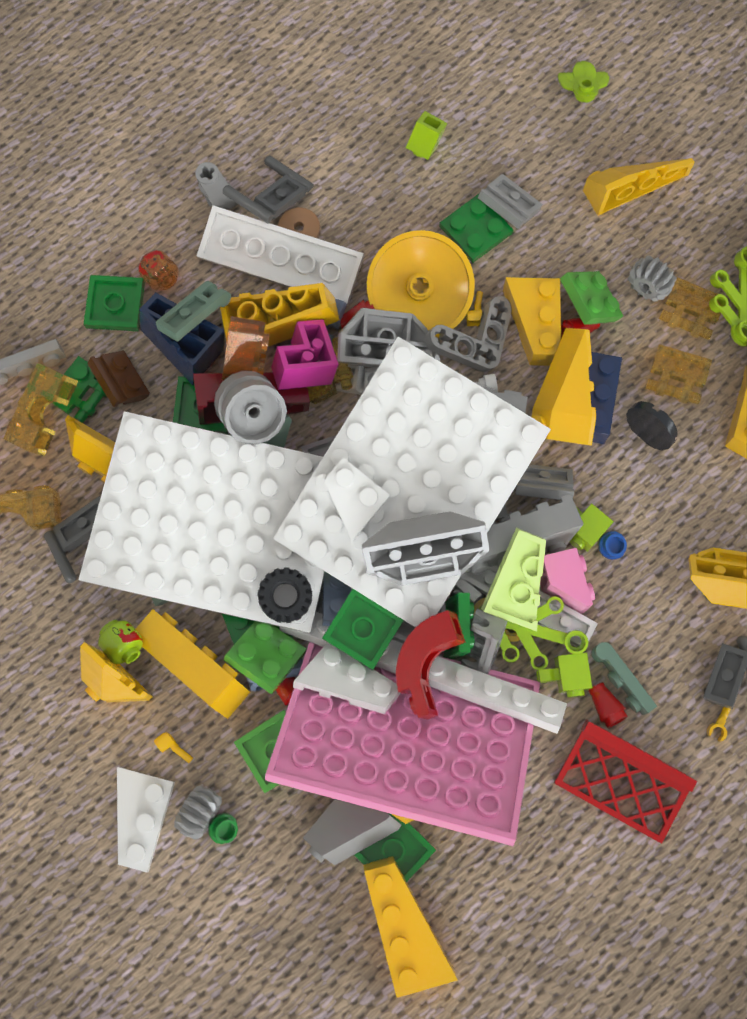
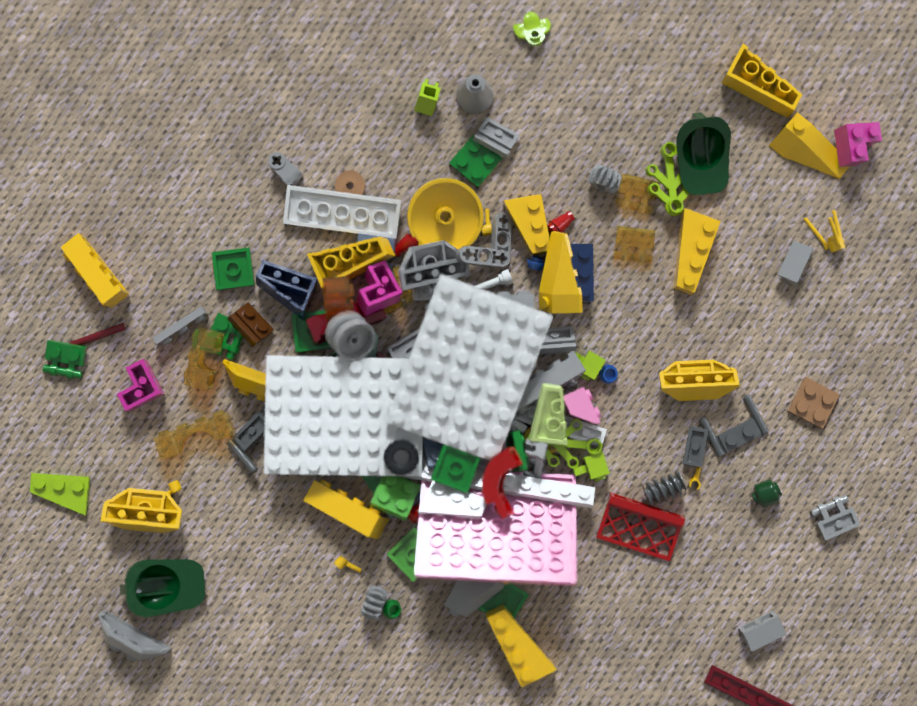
camera: 15 degrees left, 10 degrees up
(108, 680) = (298, 531): yellow wedge -> none
(120, 642) = (299, 507): lime head -> none
(140, 816) = (337, 611): white wing -> none
(158, 270) = (258, 239): clear orange head -> none
(192, 310) = (293, 270): sand green plate -> none
(276, 197) = (331, 166): dark grey plate -> none
(354, 496) = (433, 386): white wing -> none
(425, 548) = (485, 411): light grey wedge -> none
(492, 139) = (474, 94): none -> light grey cone
(534, 372) = (535, 263): none -> blue plate
(591, 297) = (565, 201): bright green plate -> none
(608, 707) = (622, 481): red cone -> none
(622, 677) = (628, 461): sand green plate -> none
(625, 183) = (574, 108): yellow wedge -> none
(652, 426) = (622, 289): black tile -> none
(671, 727) = (664, 488): none -> dark grey piece

